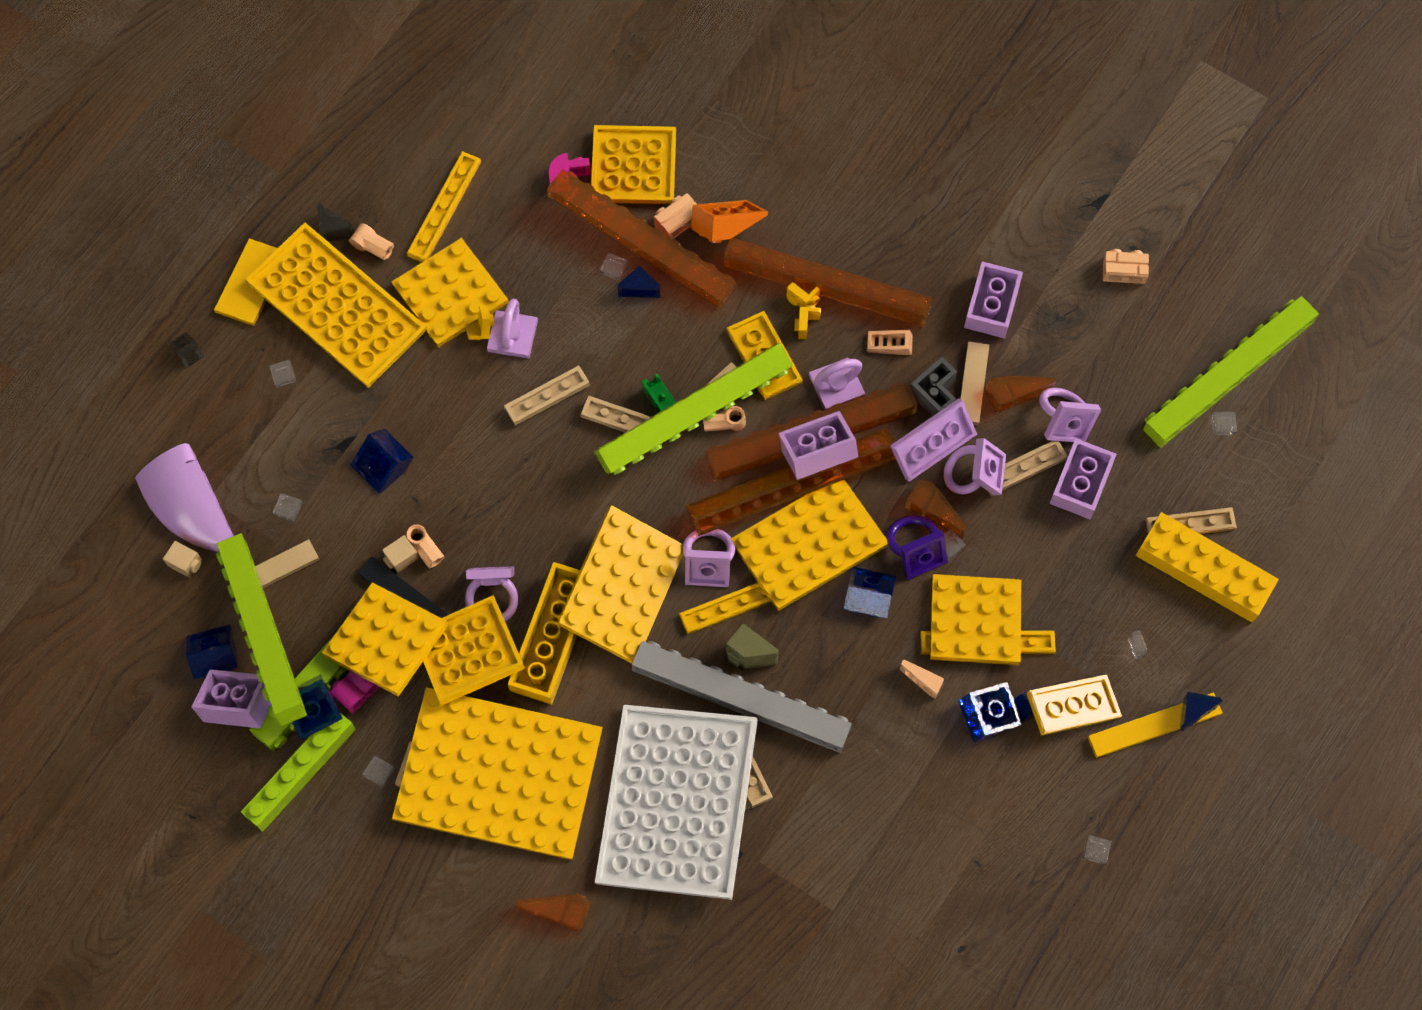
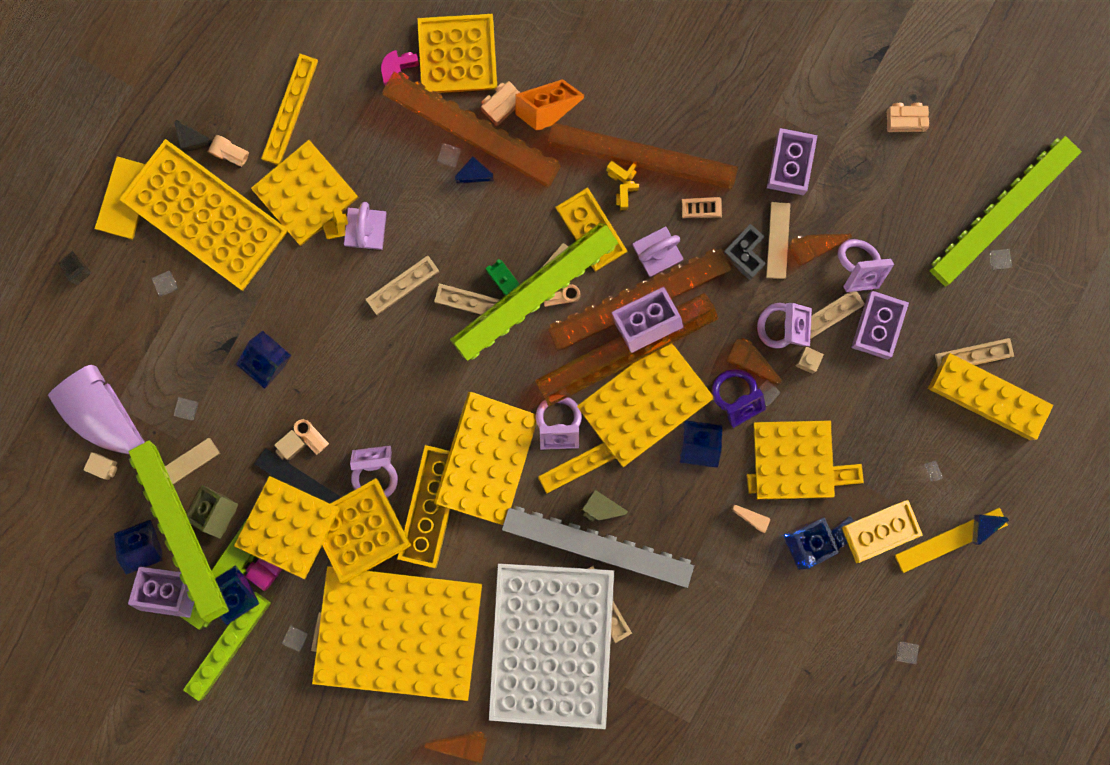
camera: 10 degrees left, 15 degrees up
(302, 619) = (211, 511): none -> olive slope
(933, 440) = (747, 300): lavender tile -> none
(1000, 510) = (809, 360): none -> tan brick

